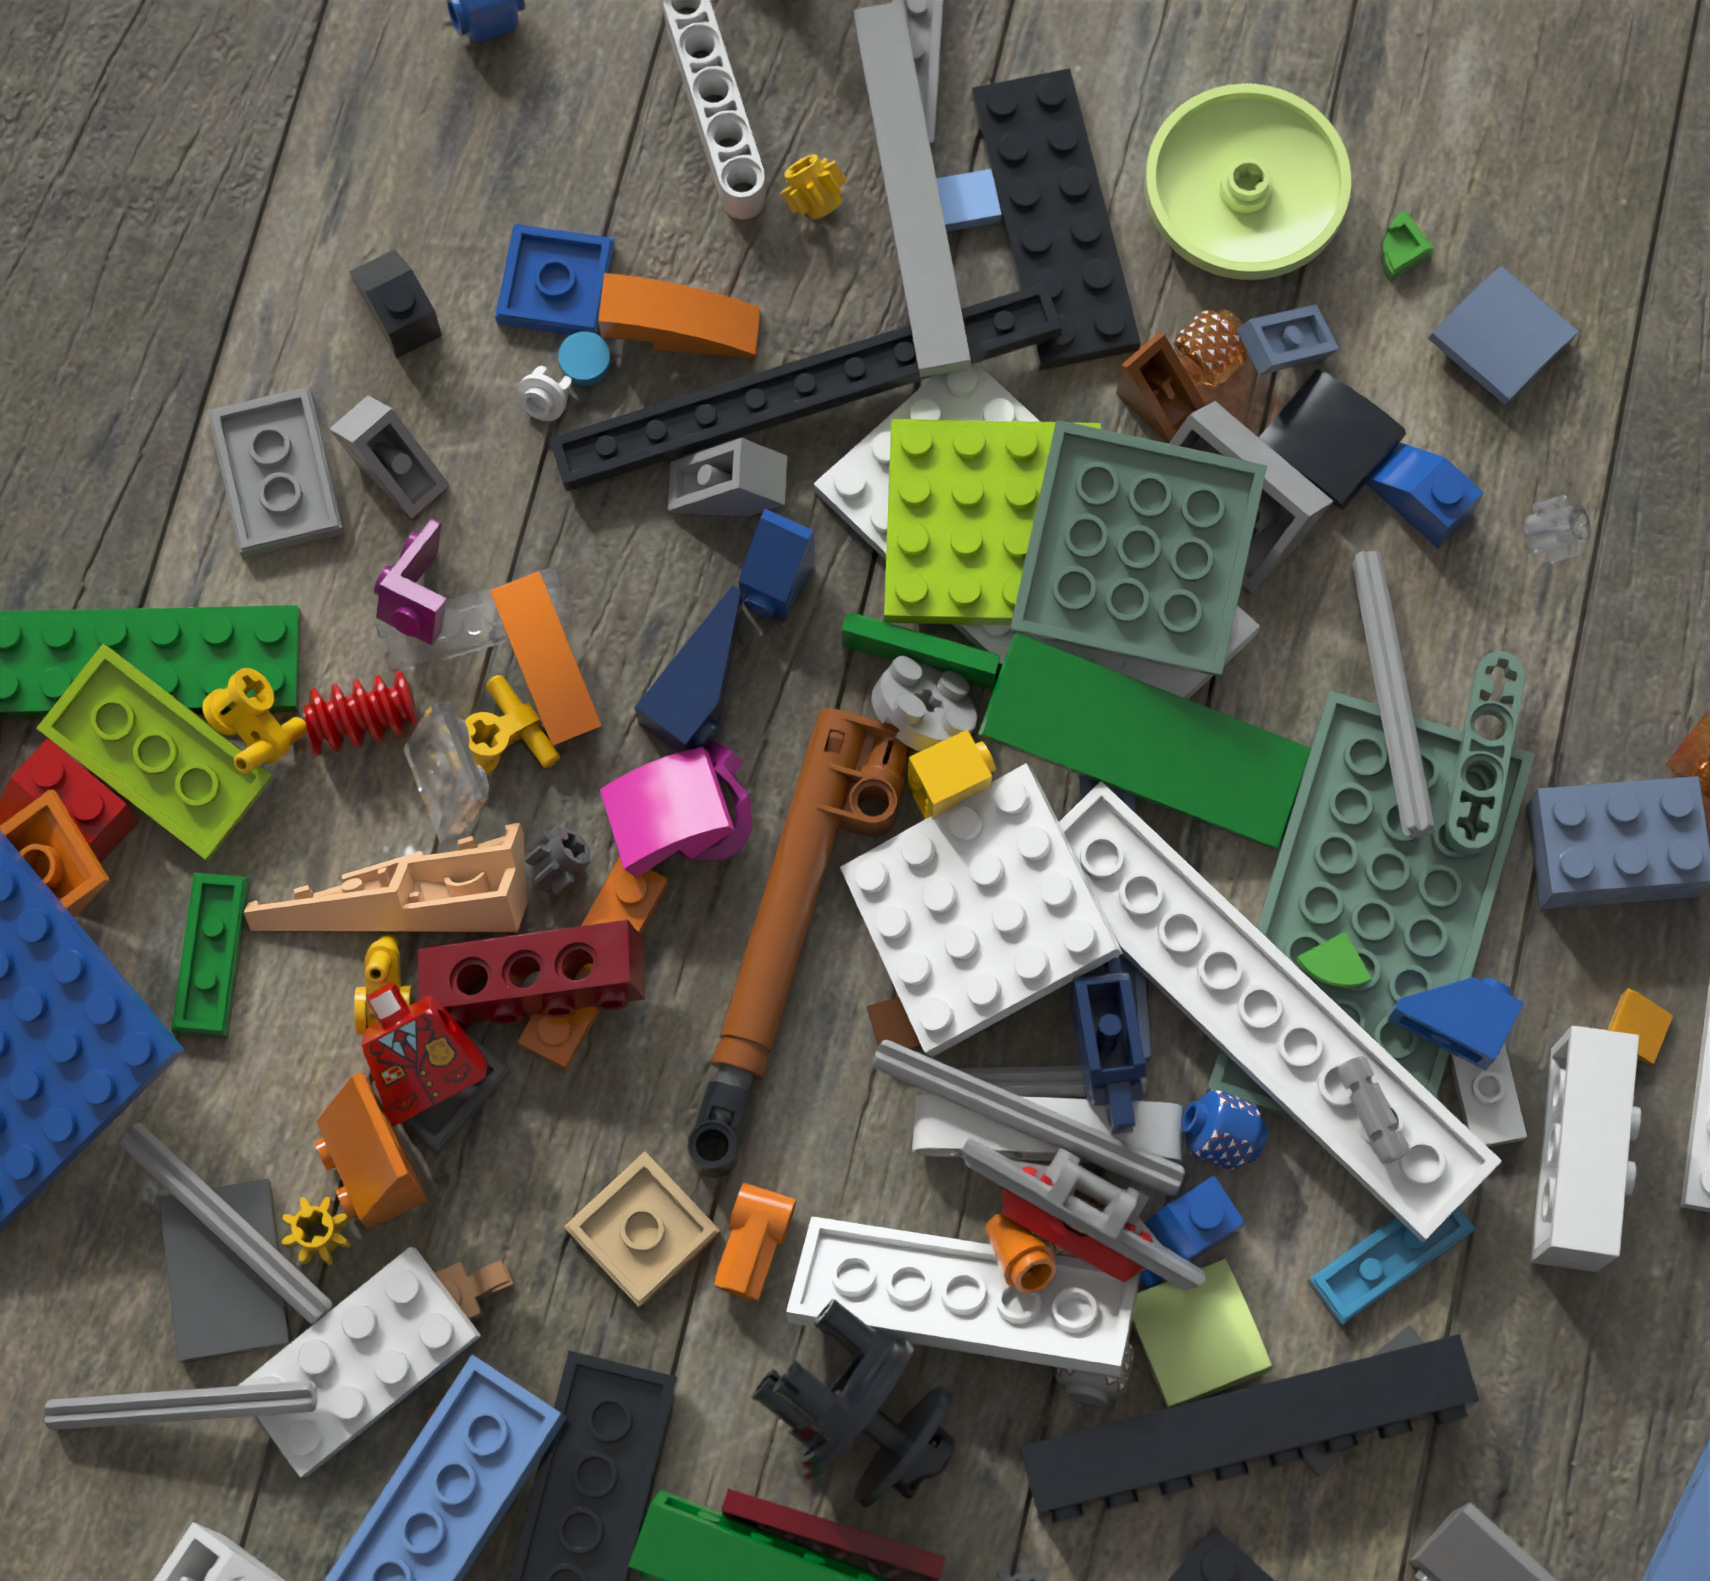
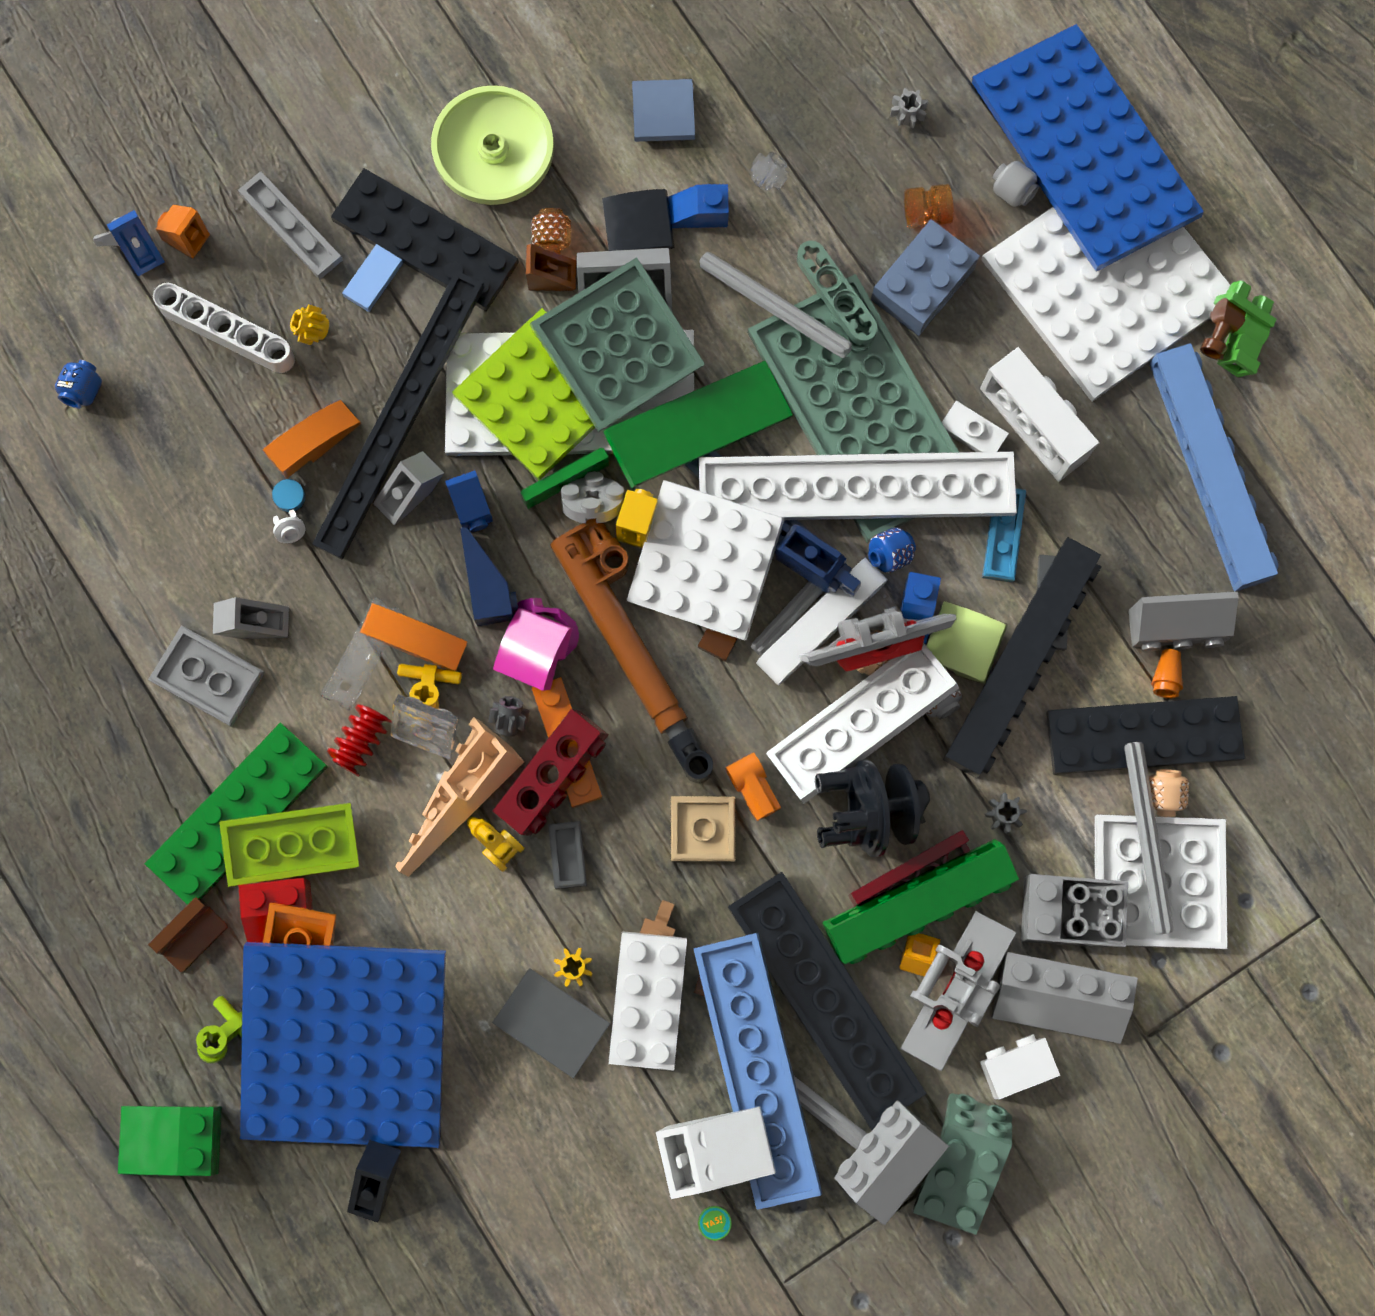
camera: 50 degrees left, 5 degrees up
(181, 1405) = (595, 1094): light grey axle -> none
(210, 955) = (403, 903): green tile -> none
(225, 1223) = (532, 1003): light grey axle -> none
(251, 720) = (317, 789): yellow piece -> none
(367, 1156) = (564, 914): orange slope -> none
(397, 302) = (179, 550): black slope -> none
(401, 600) = (329, 674): magenta bracket -> none
(417, 1054) = (541, 852): red torso -> none
(554, 280) = (238, 474): blue tile -> none
(912, 190) = (355, 284): light grey tile -> none
(1020, 1254) = (869, 680): orange cone -> none
(1028, 1117) = (813, 623): light grey axle -> none
(1287, 339) = (579, 197): sand blue plate -> none
(1335, 963) = (867, 438): bright green tile -> none
(1373, 1110) = (945, 481): light grey axle -> none
(1403, 246) = (582, 111): bright green tile -> none
(1462, 1017) = (941, 409): blue slope -> none
(1643, 1018) = (1002, 343): light orange slope -> none

